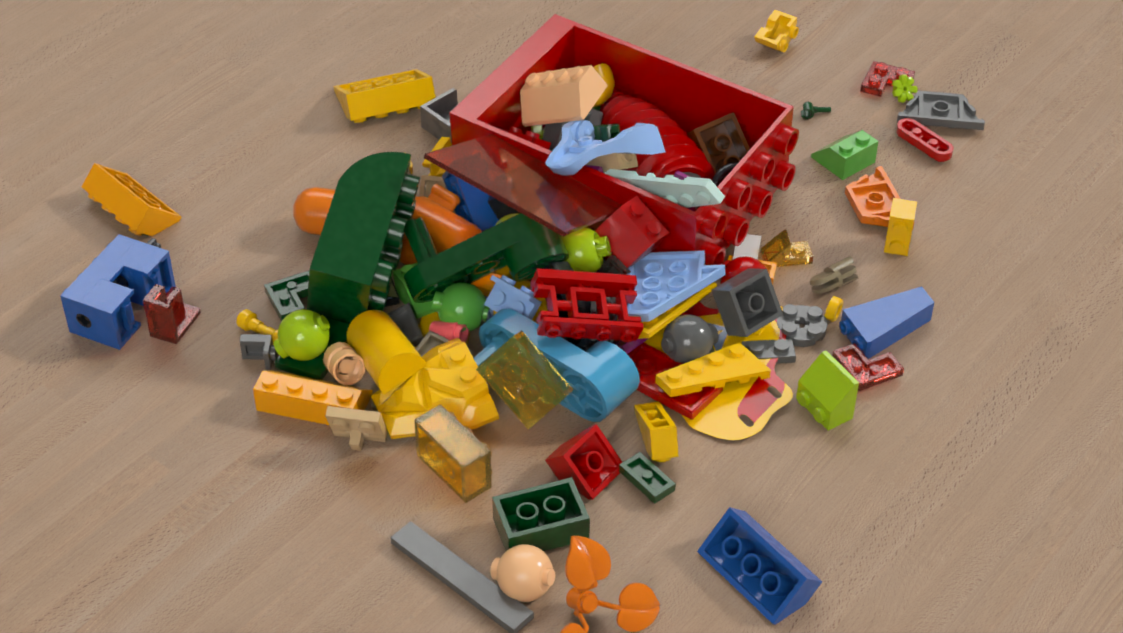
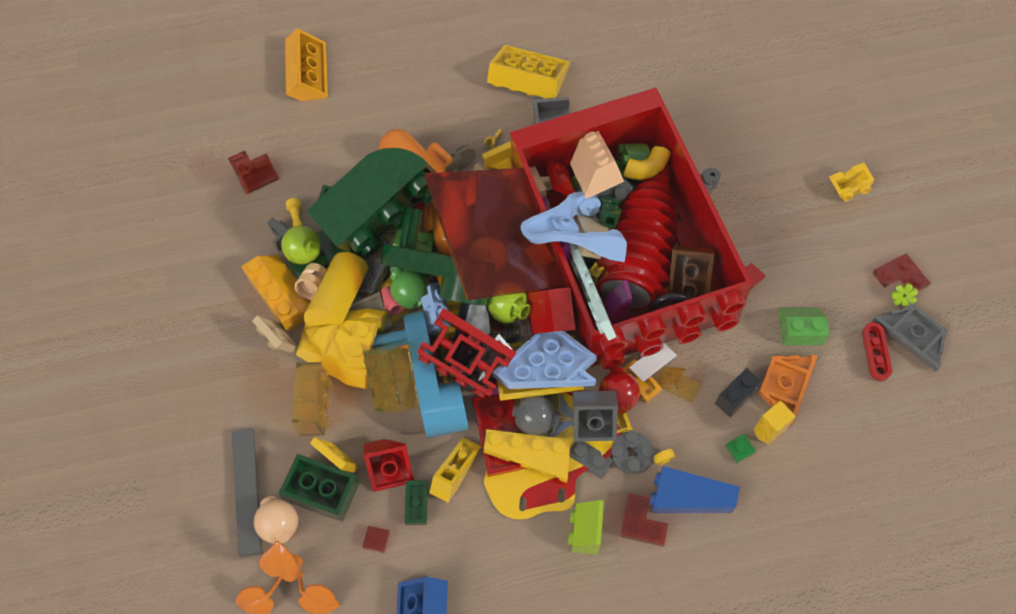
camera: 40 degrees right, 20 degrees up
(102, 295) = (232, 124): blue piece -> none
(524, 476) = (335, 455): none -> yellow tile
(638, 532) = (376, 539): none -> clear red plate
(809, 110) = (814, 266): dark green hand -> none
(834, 276) = (690, 429): dark tan arm -> none
(846, 227) = (738, 392): none -> black piece
(889, 269) = (740, 448): none -> green plate

